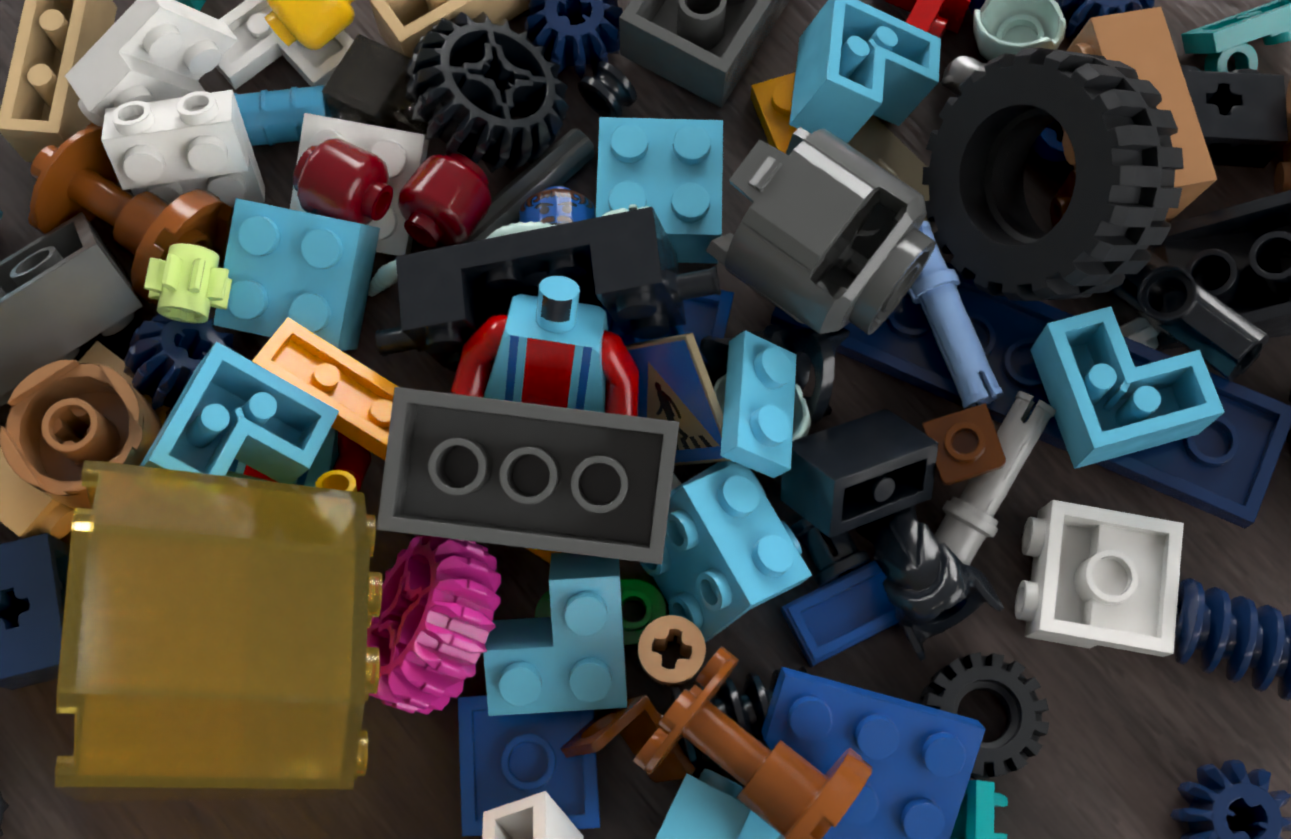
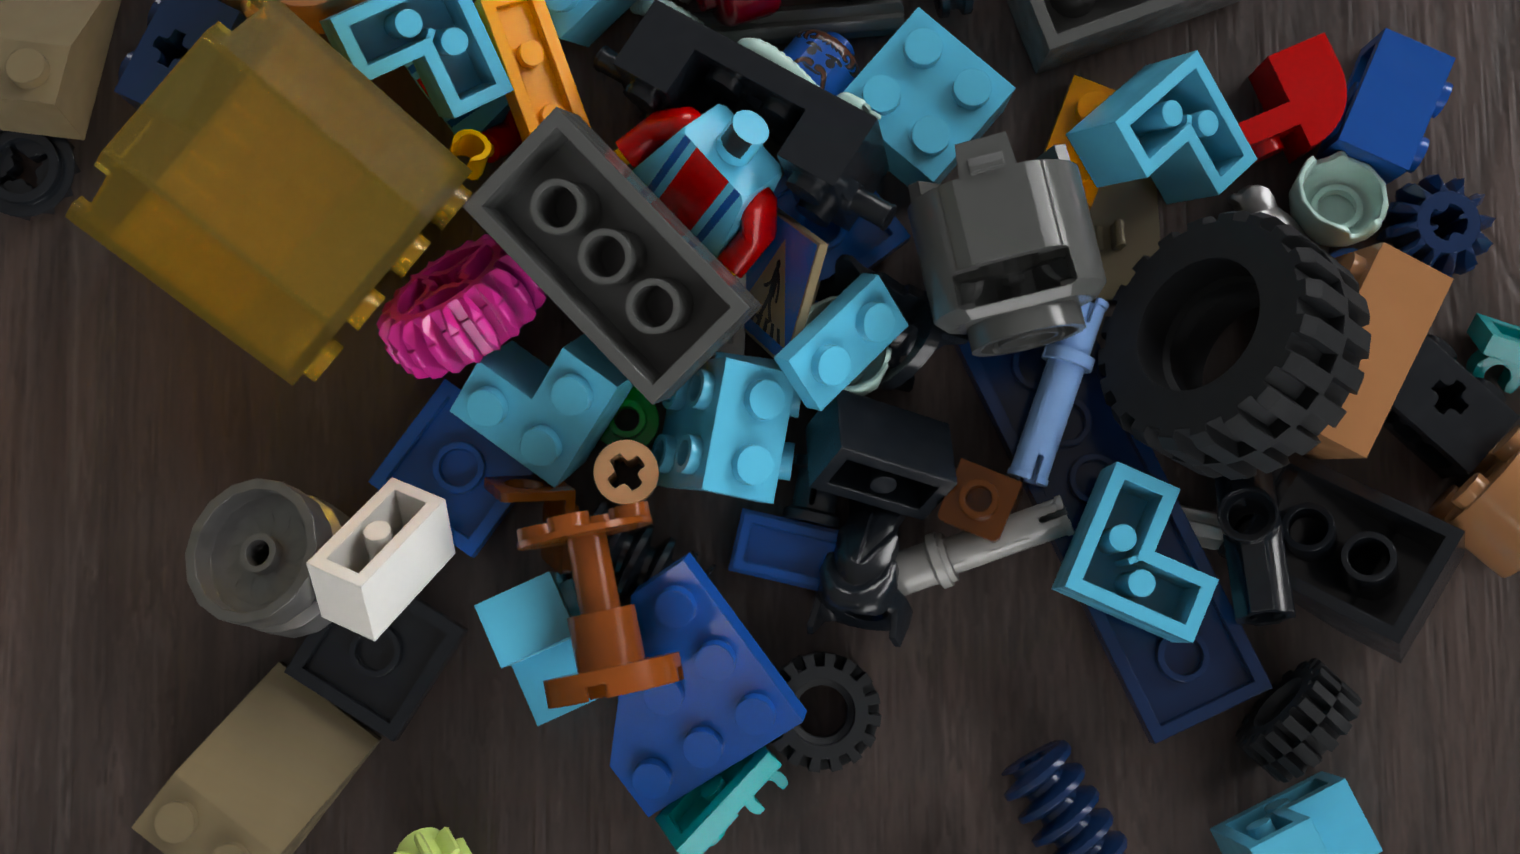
camera: 35 degrees right, 10 degrees up
(1101, 578) = (1000, 687): white plate -> none

